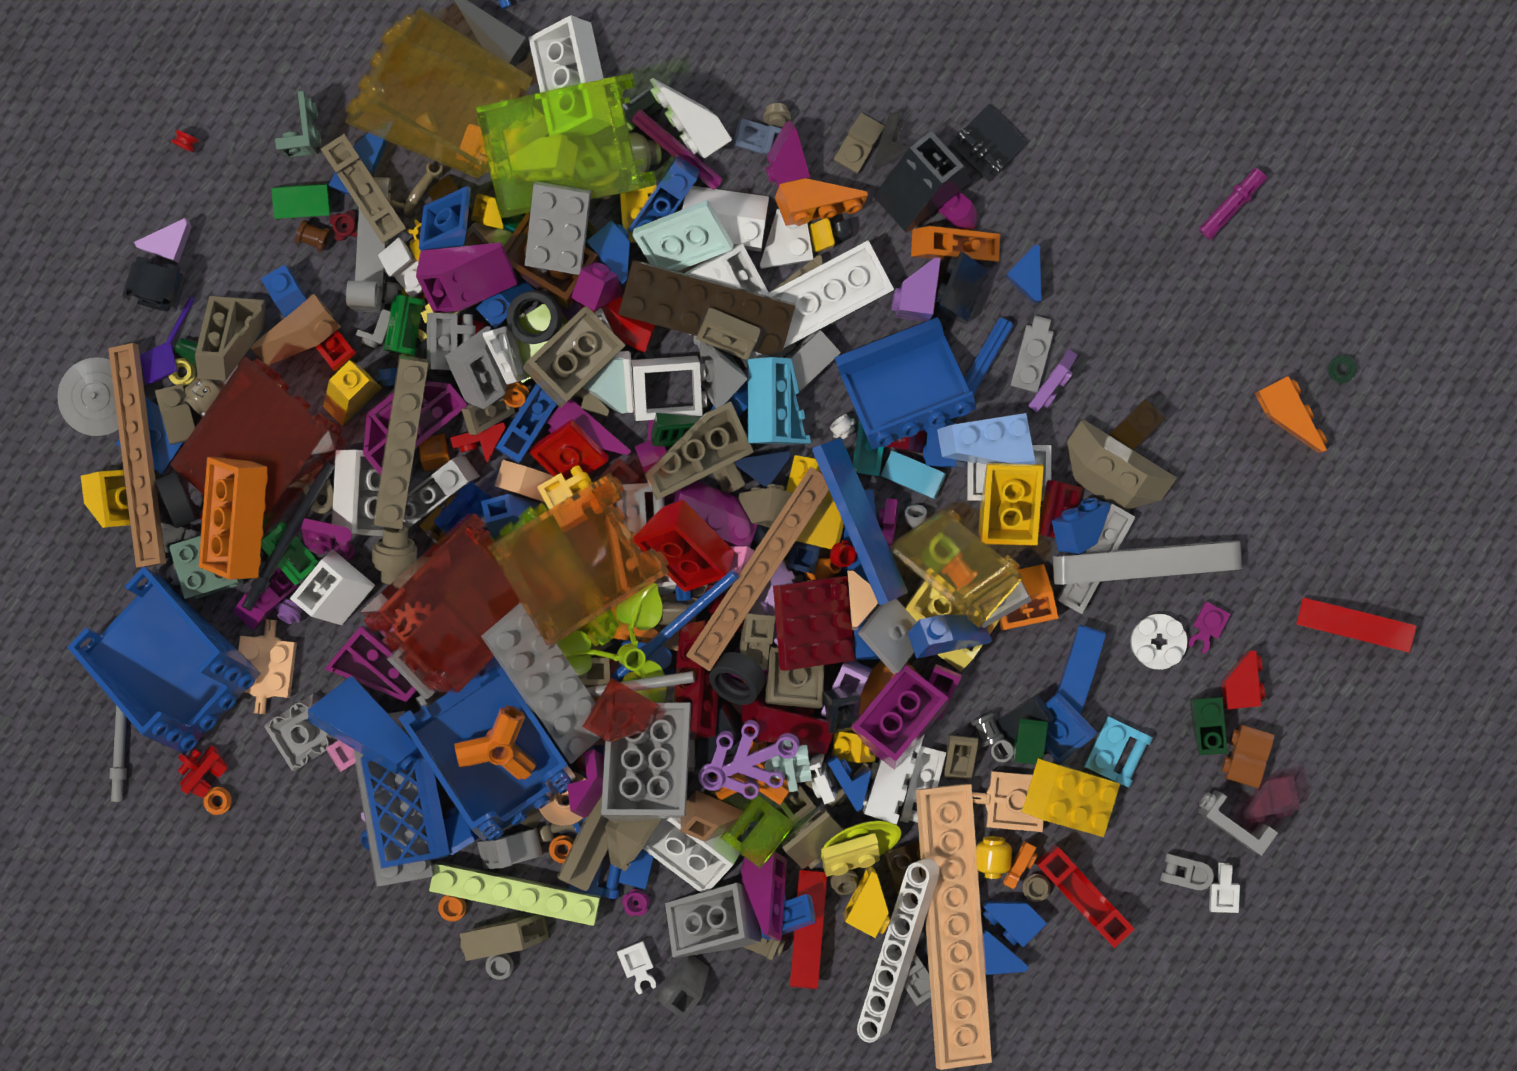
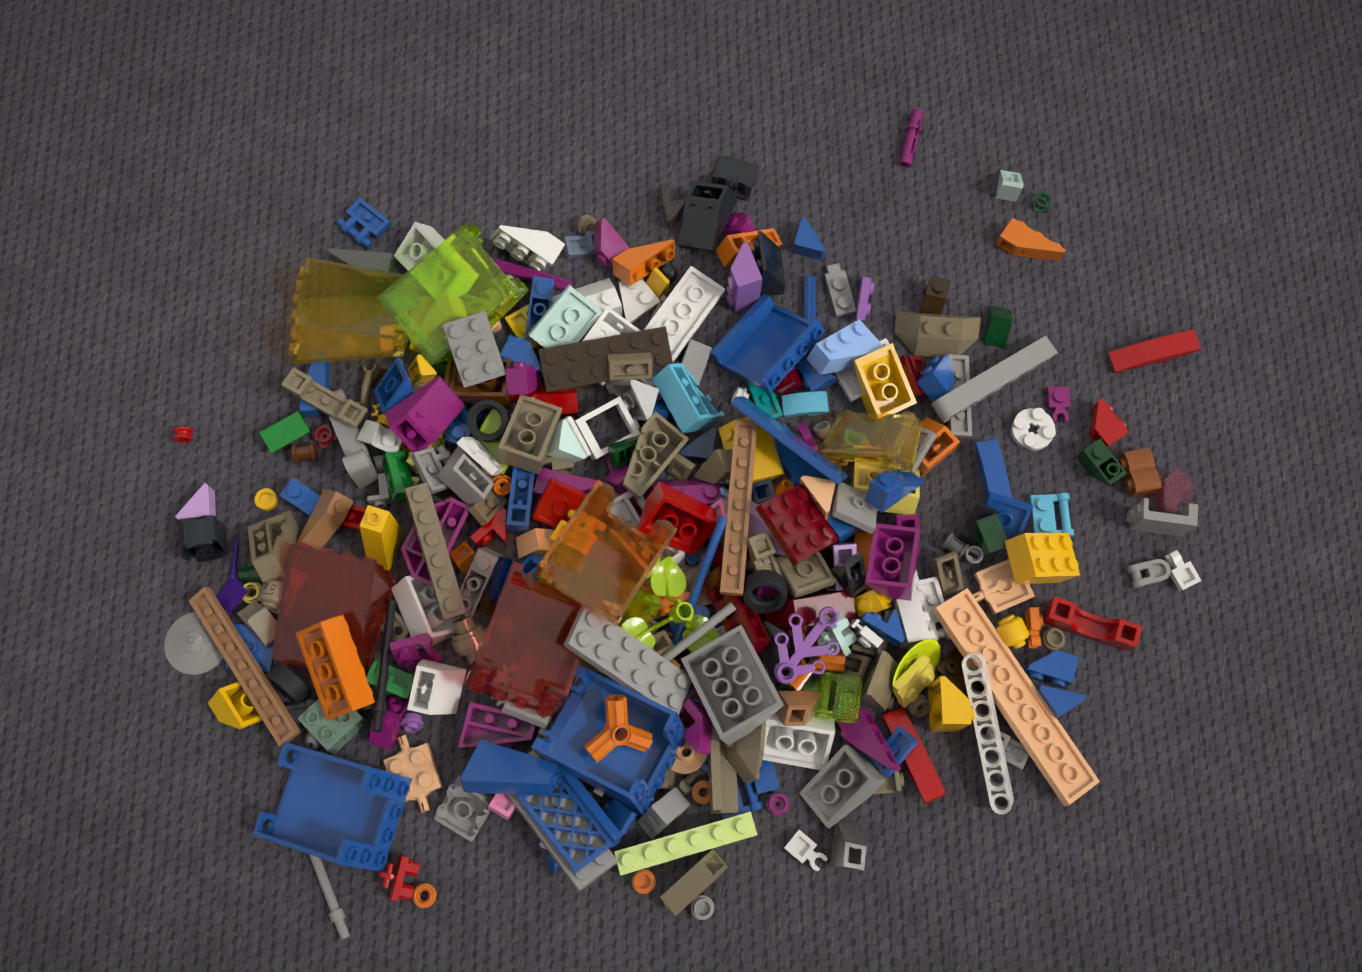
camera: 30 degrees left, 15 degrees down
(244, 268) = (266, 499): none -> yellow tile
(301, 145) = (264, 394): sand green bracket -> none
(387, 376) = (405, 520): blue plate -> none
(620, 713) = (694, 658): clear red plate -> none
(842, 554) = (789, 472): red plate -> none
(859, 143) = (650, 218): dark tan slope -> none
(1194, 496) = (998, 326): none -> dark green slope
(1316, 326) = (1009, 185): none -> light aqua slope

